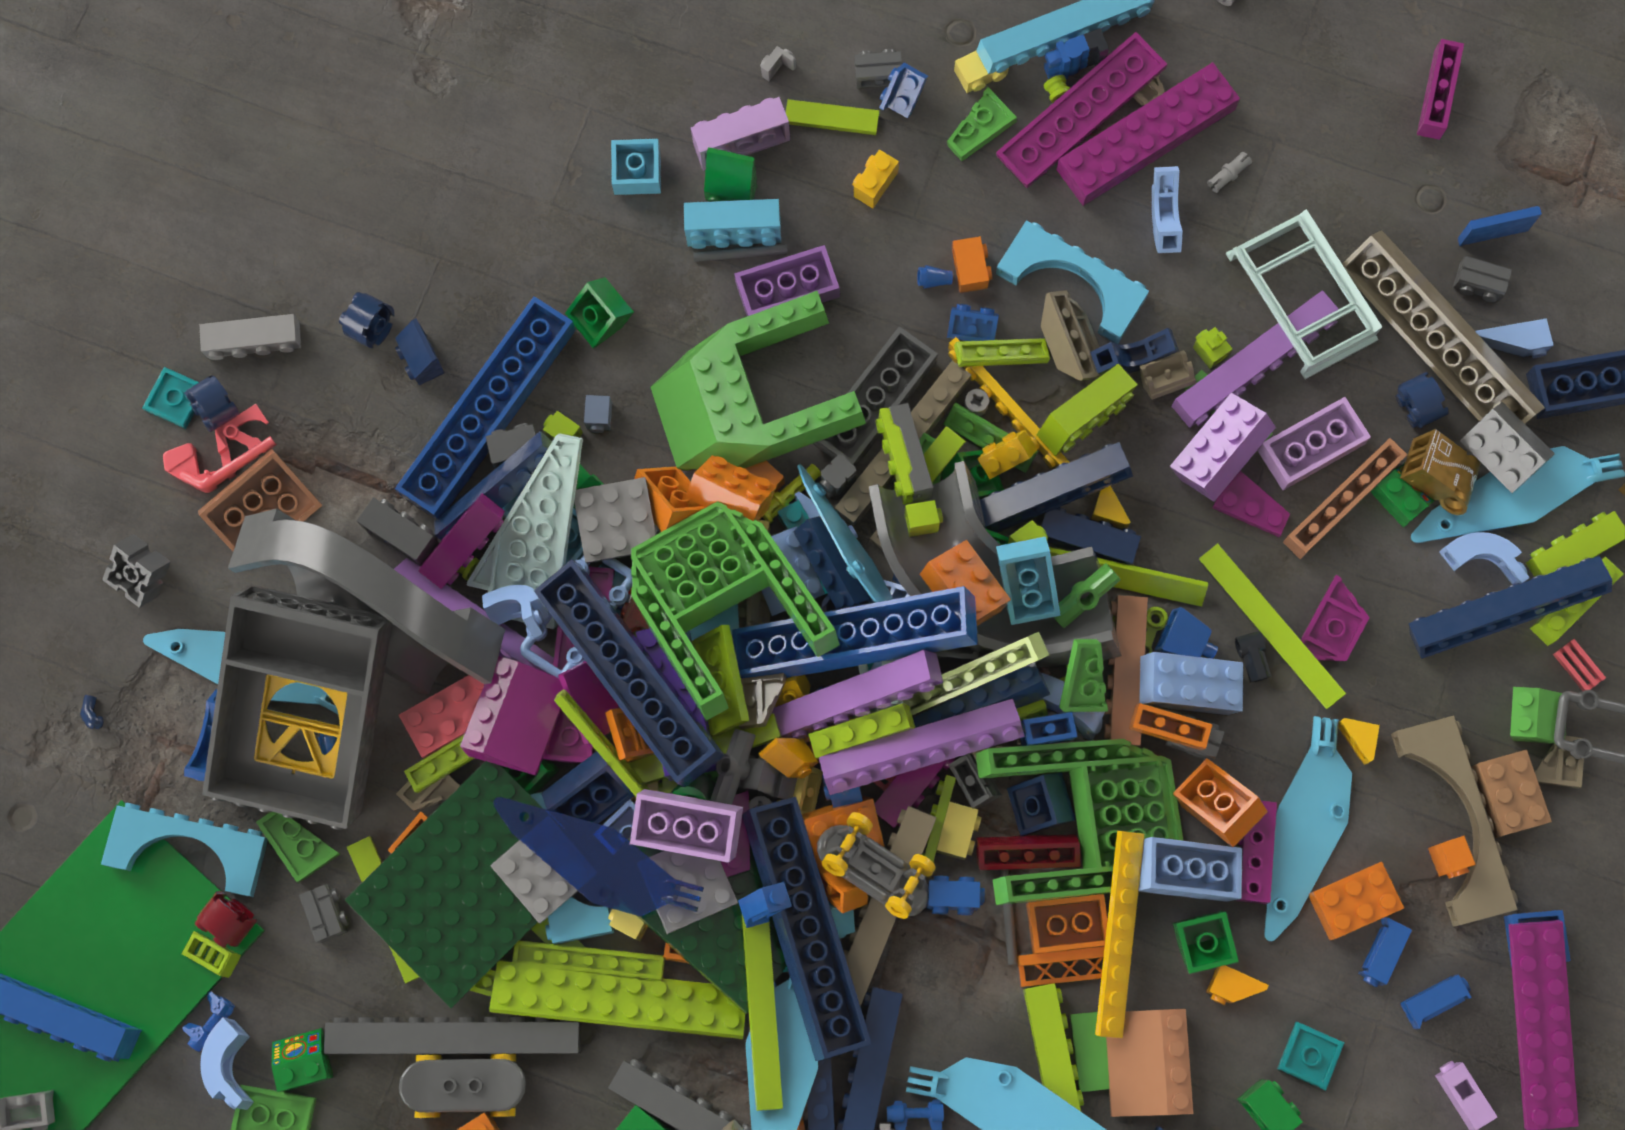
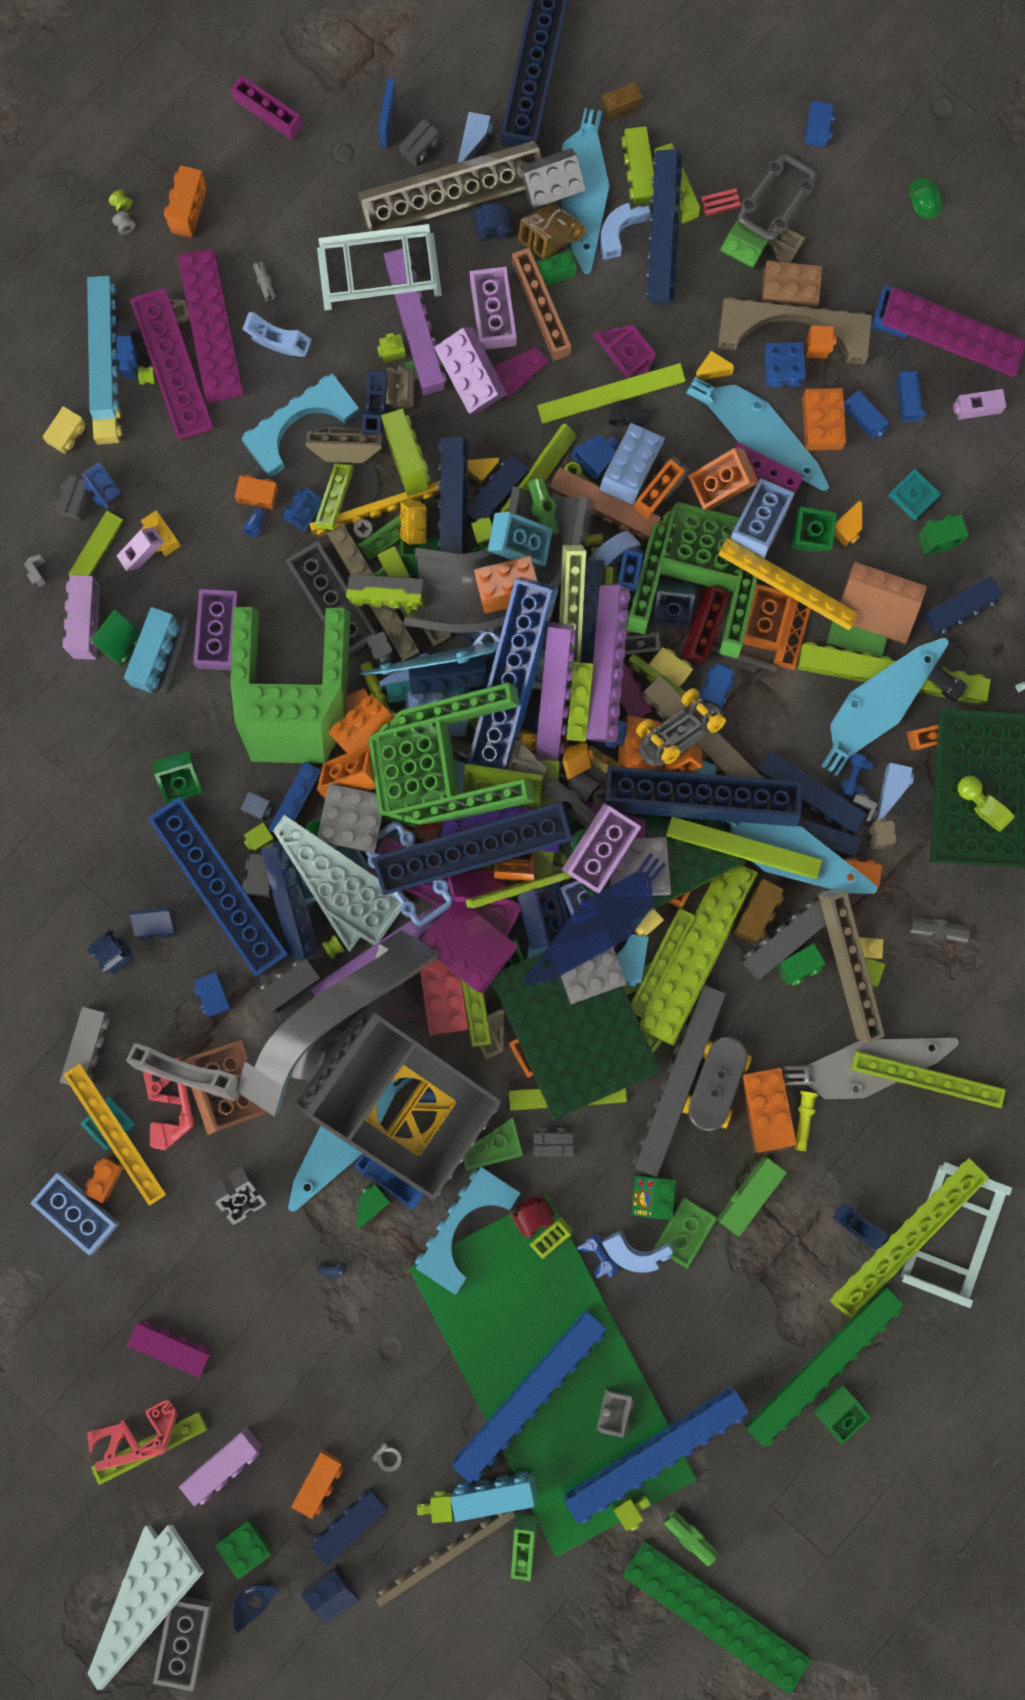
camera: 75 degrees left, 5 degrees up
(58, 401) = (75, 1213): none -> light blue brick
(107, 417) = (104, 1179): none -> orange brick
(160, 407) = (114, 1134): none -> yellow plate
(177, 724) = (371, 1203): none -> green slope
(211, 402) = (128, 1093): dark blue brick -> none
(251, 451) = (163, 1066): none -> light grey arch
(360, 451) = (212, 995): none -> blue brick
(461, 541) = (319, 938): magenta brick -> none
(516, 602) = (381, 914): light blue arch -> none
(623, 454) = (298, 795): none -> blue brick
(636, 166) = (74, 705): medium azure brick -> none
(693, 1056) = (759, 912): none -> pearl gold brick
(764, 903) = (678, 815): blue window -> none
(845, 162) = (140, 549): none -> lavender brick
(922, 518) = (442, 596): lime brick -> none
(952, 27) = (64, 430): none -> light yellow brick
(982, 125) = (151, 441): bright green wing -> none
(1084, 679) = (605, 530): bright green wing -> none
(1282, 46) = (185, 201): none -> orange brick
(1404, 824) = (784, 364): none -> blue brick

